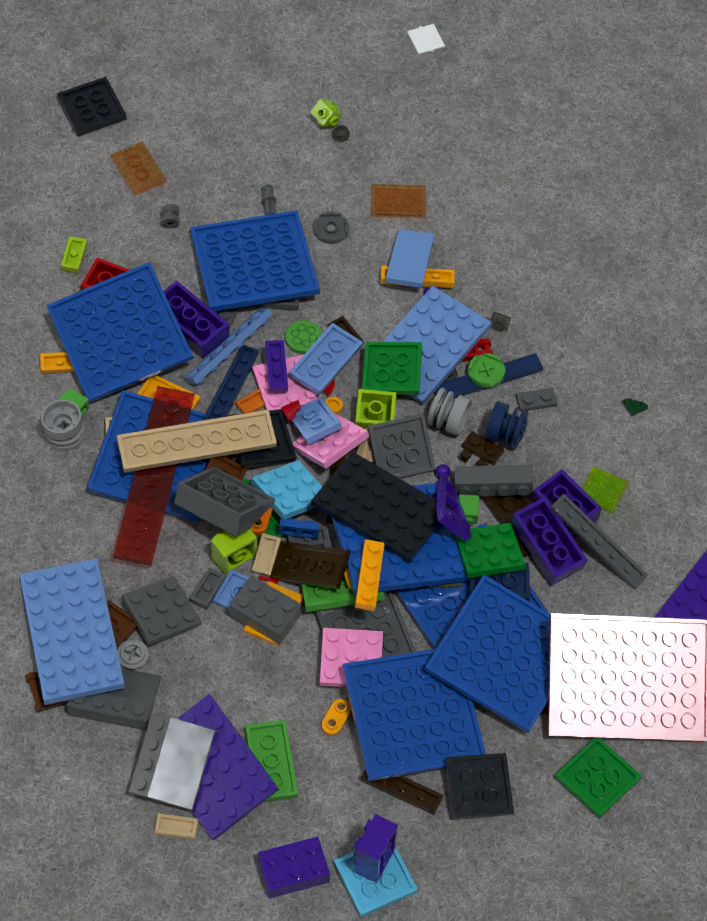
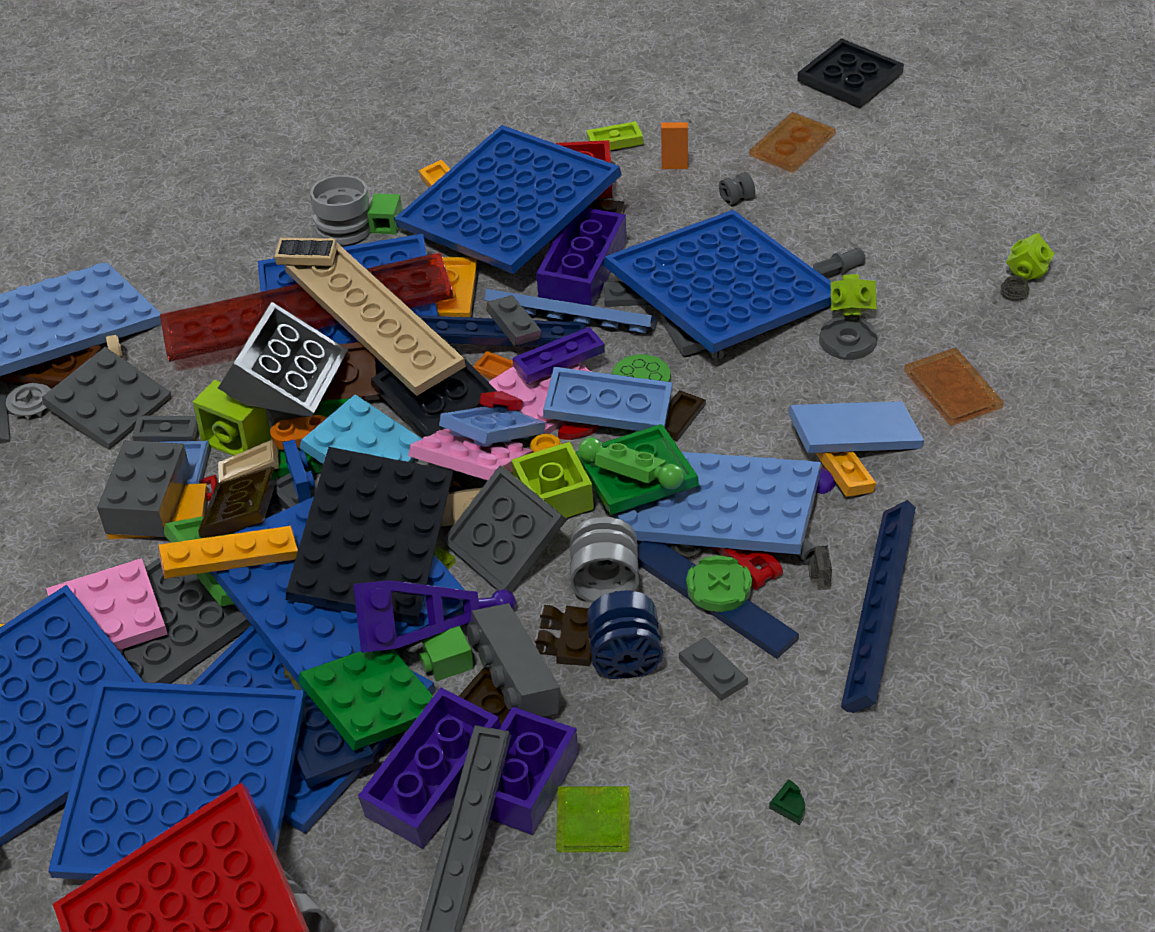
camera: 70 degrees right, 15 degrees down
(114, 593) = (114, 345): none -> tan tile
(118, 227) = (674, 145): none -> orange tile
(126, 452) = (306, 251): none -> tile
(231, 376) = (513, 320): none -> dark grey plate
(310, 207) = (853, 295): none -> lime brick
(398, 367) = (631, 463): none -> bright green plate
(537, 310) = (878, 608): none -> dark blue plate

